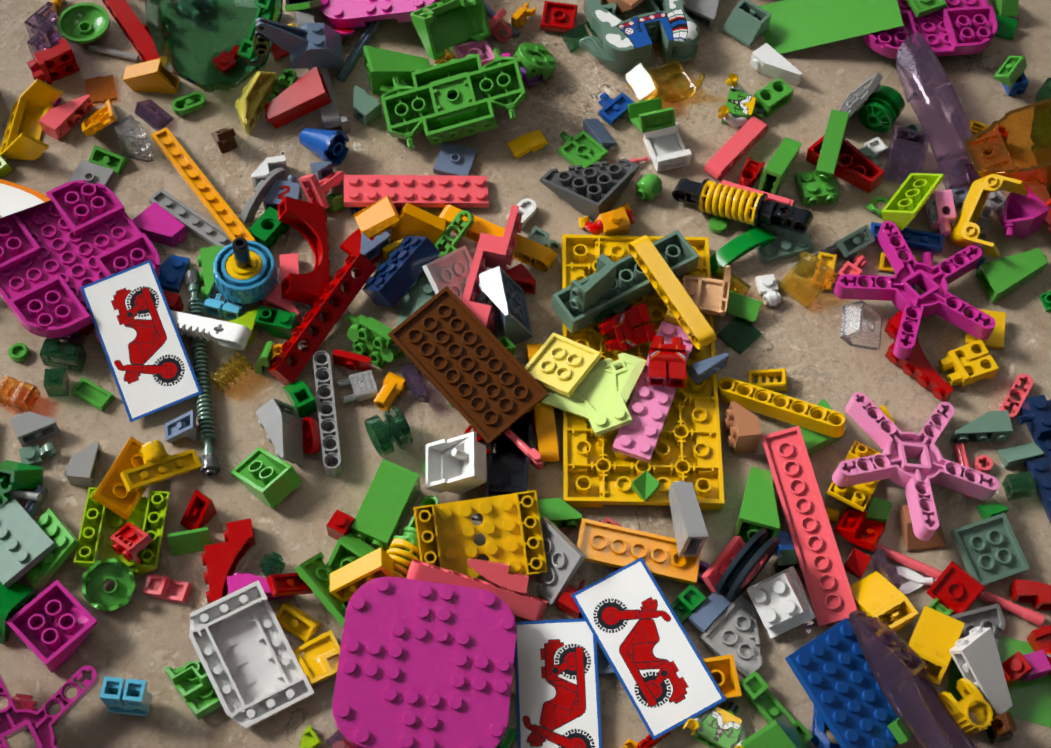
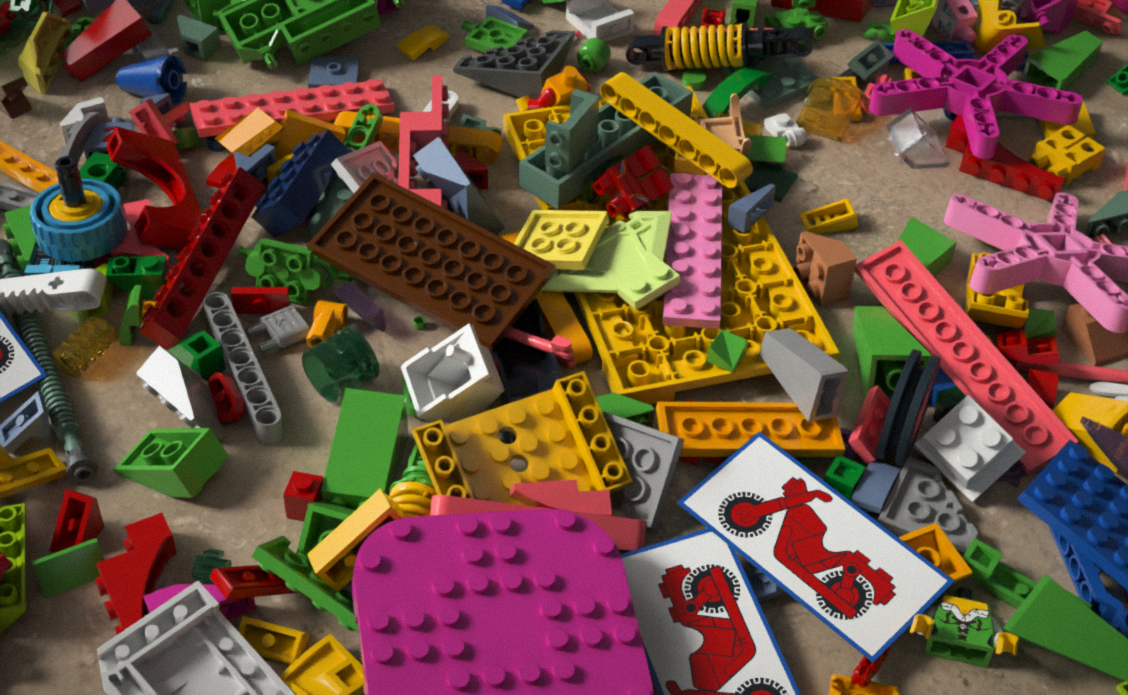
camera: 15 degrees left, 15 degrees down
(166, 589) = (42, 643): coral slope -> none
(567, 604) = (675, 519): red brick -> none
(670, 356) = (700, 205): red hips -> none
(782, 407) = (872, 233): yellow beam -> none
(880, 565) = (1074, 381): slope -> none

